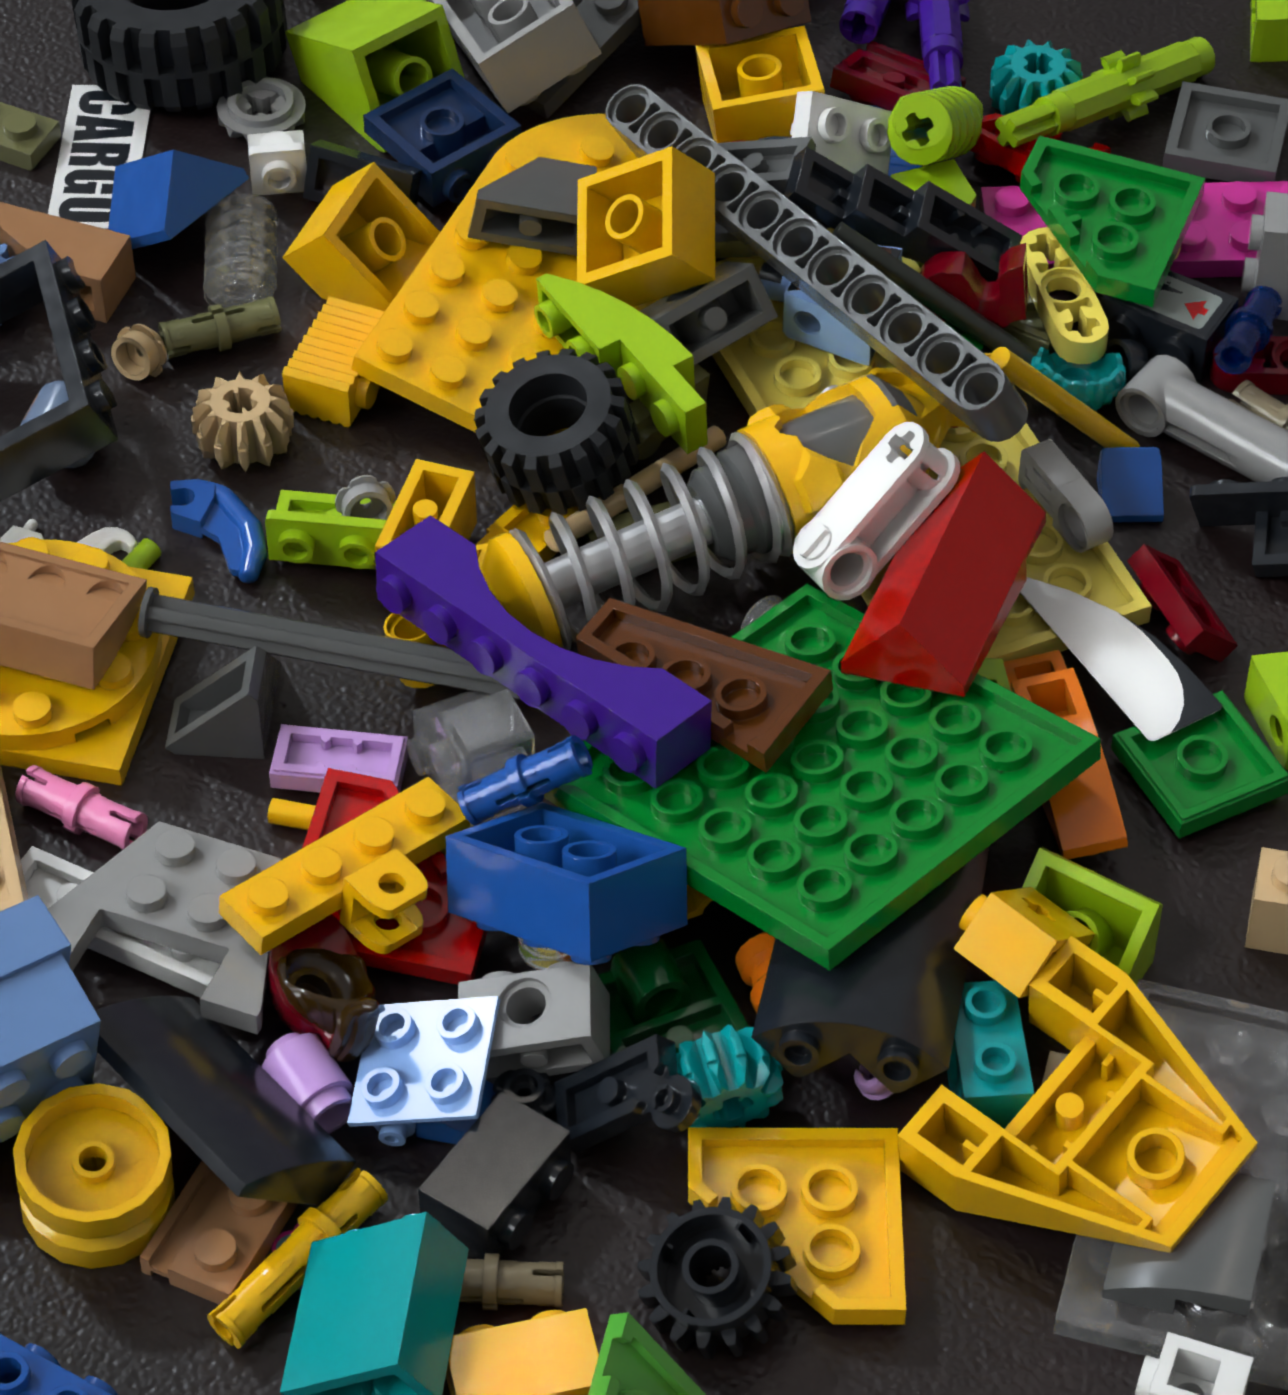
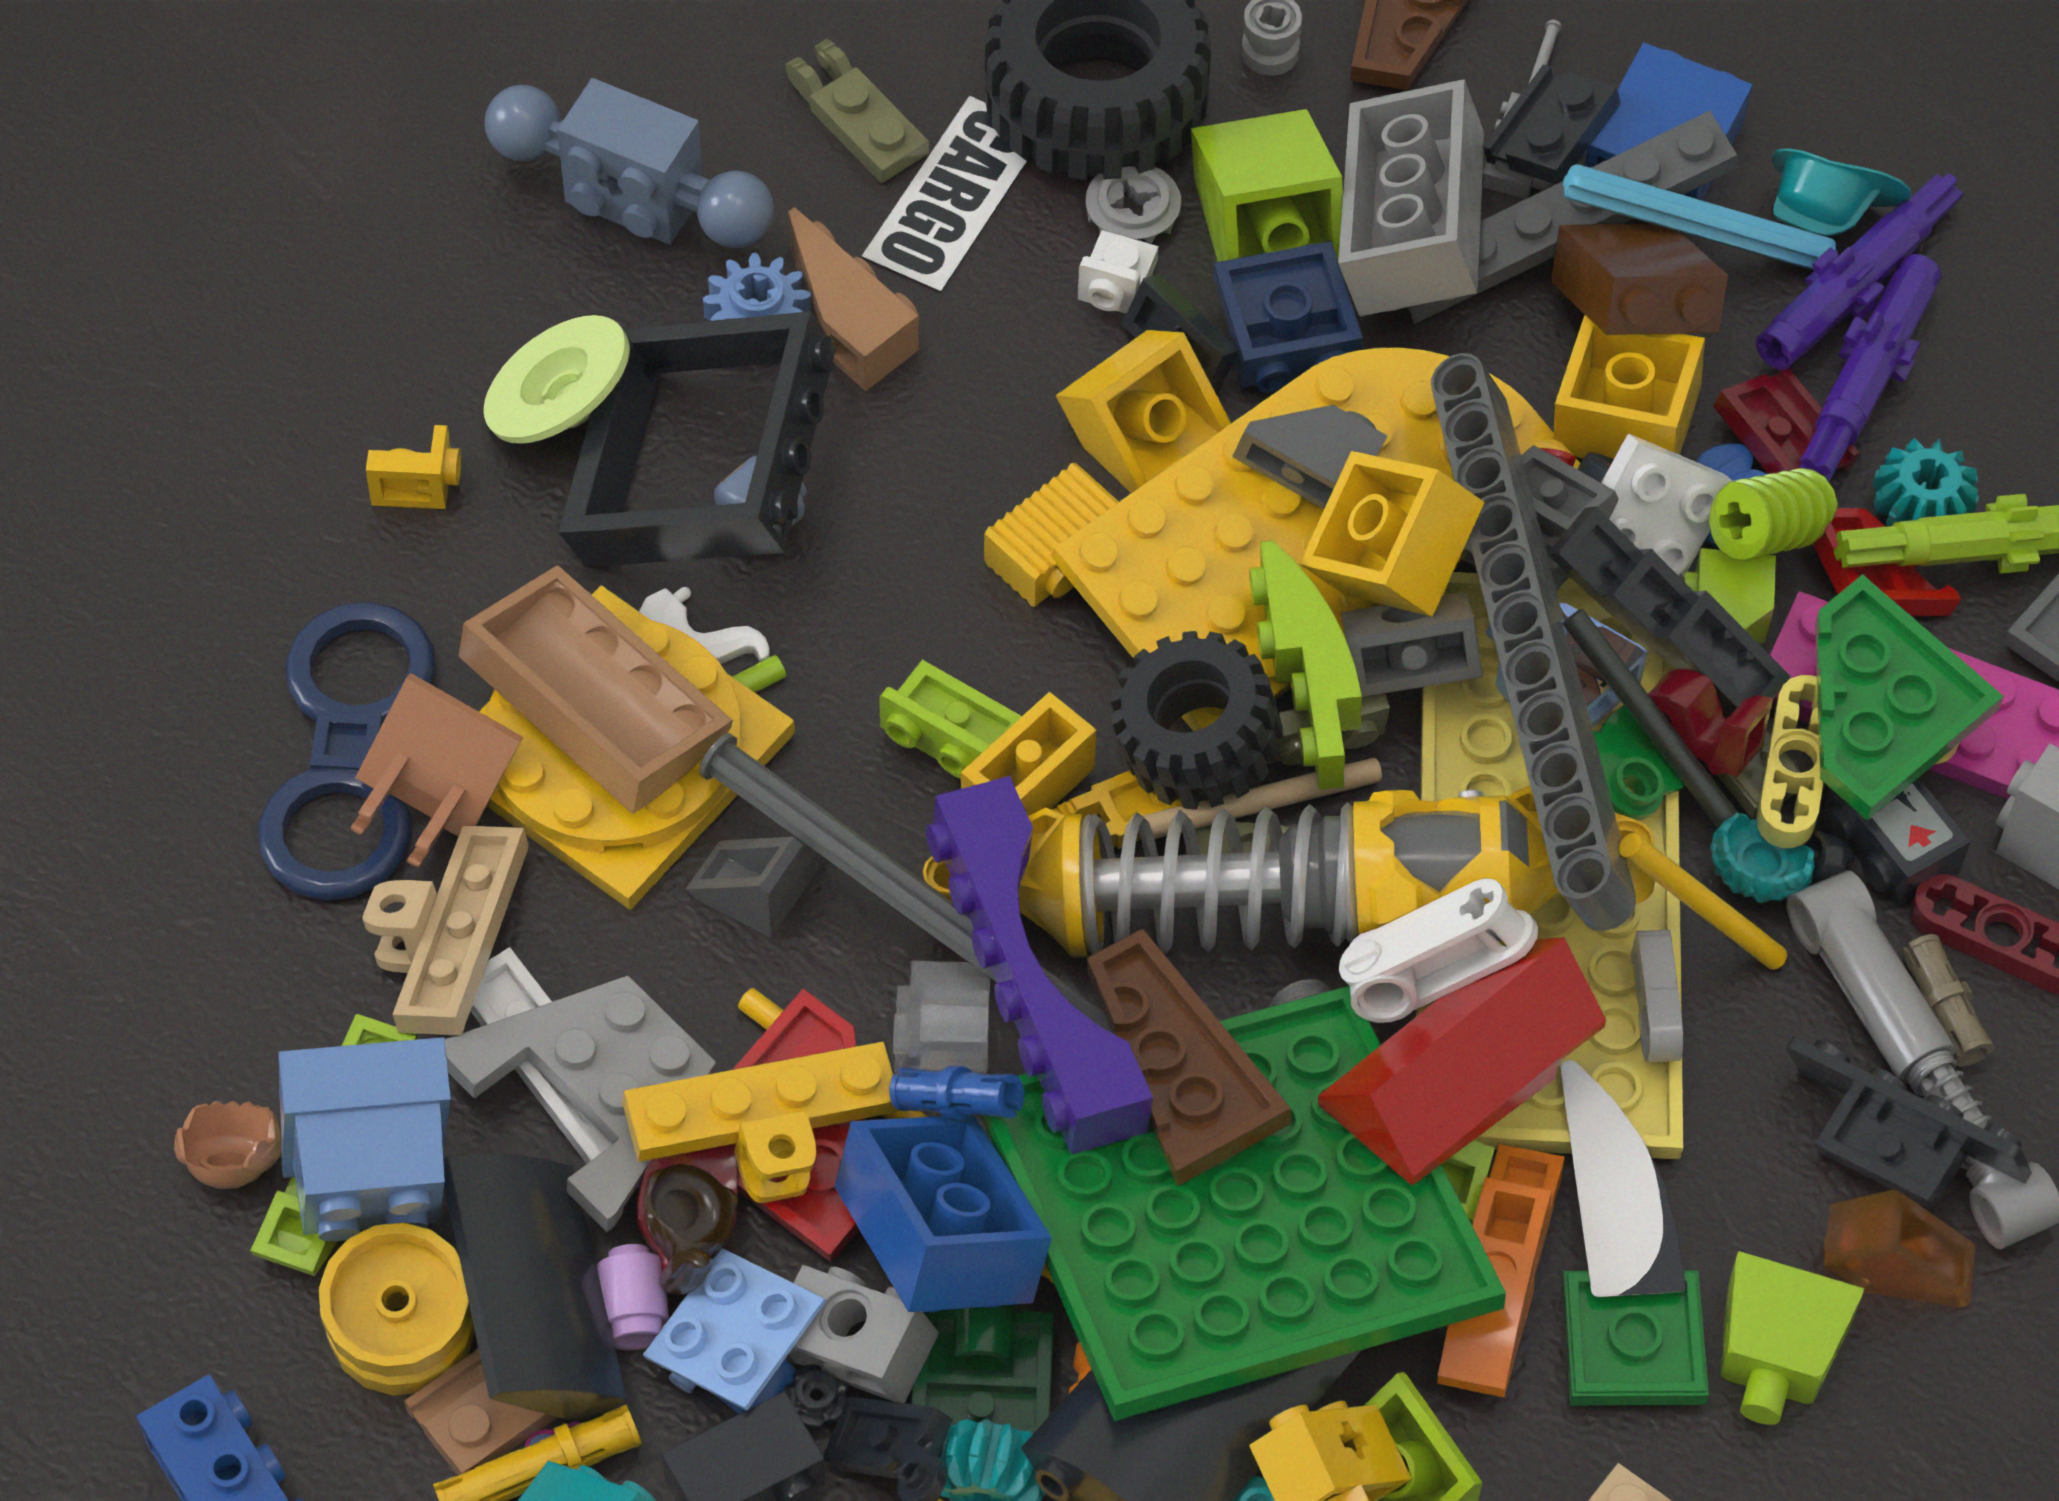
camera: 25 degrees right, 10 degrees up
(80, 807) = (577, 923): bright pink pin -> none
(139, 352) = (872, 444): tan plate -> none
(167, 193) = (974, 287): blue slope -> none
(220, 327) = (961, 447): olive pin -> none
(223, 517) = (862, 666): blue piece -> none
(240, 250) = (1019, 372): clear piece -> none
(242, 421) = (927, 565): tan gear -> none
(307, 753) = (831, 973): lavender plate -> none
(361, 487) = (985, 713): light grey plate -> none
(1131, 483) = (1748, 1001): blue slope -> none
(1173, 592) = (1717, 1156): dark red plate -> none
(1248, 330) = (1961, 880): clear blue pin -> none

